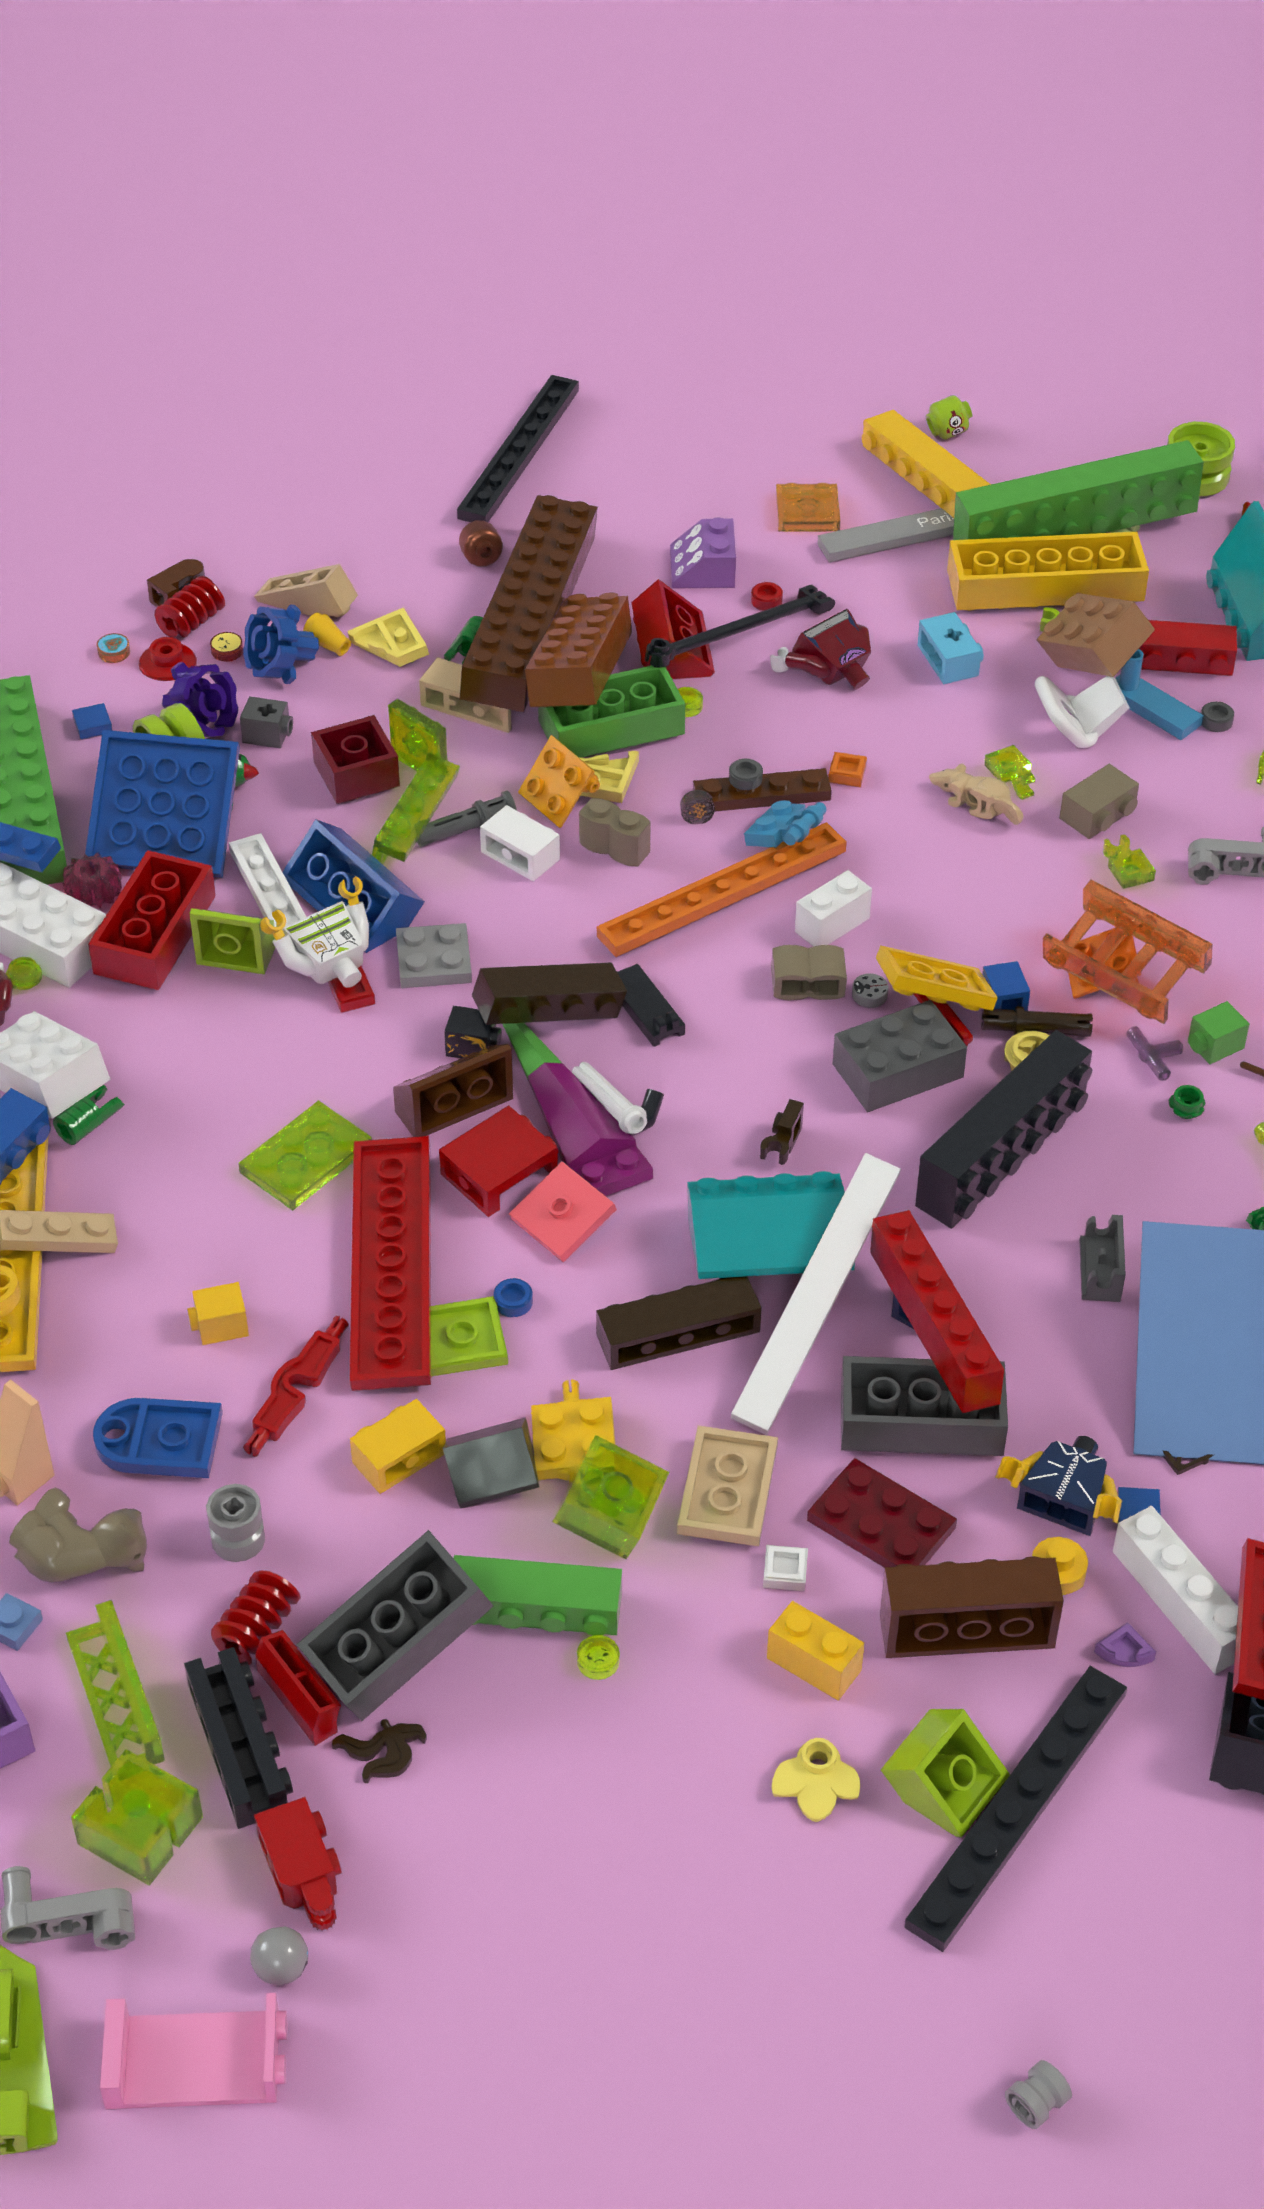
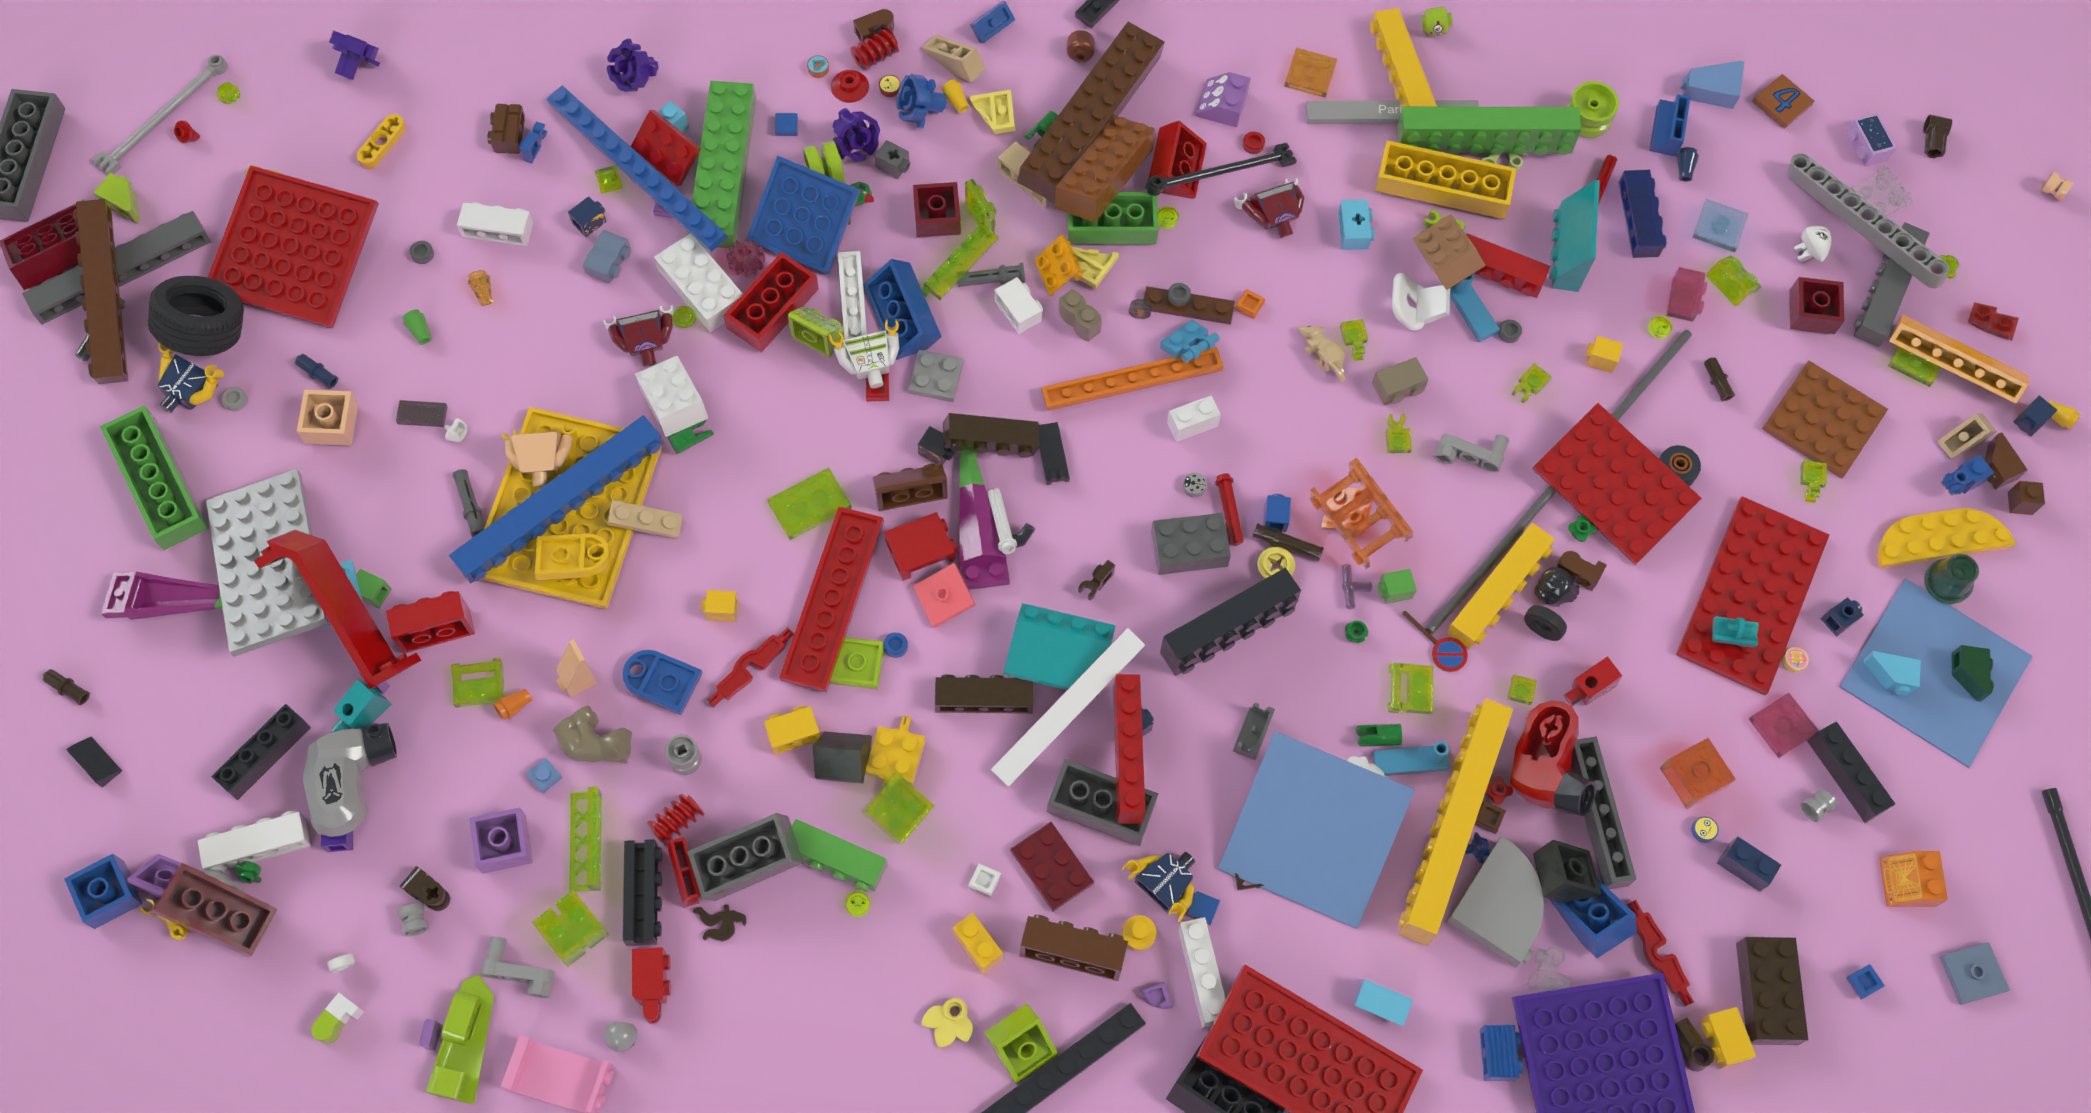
camera: 15 degrees right, 20 degrees up
(346, 543) = (992, 22): none -> blue plate
(727, 1486) = (971, 816): tan plate -> none
(808, 972) = (1160, 461): dark tan brick -> none
(936, 979) = (1232, 497): yellow plate -> none

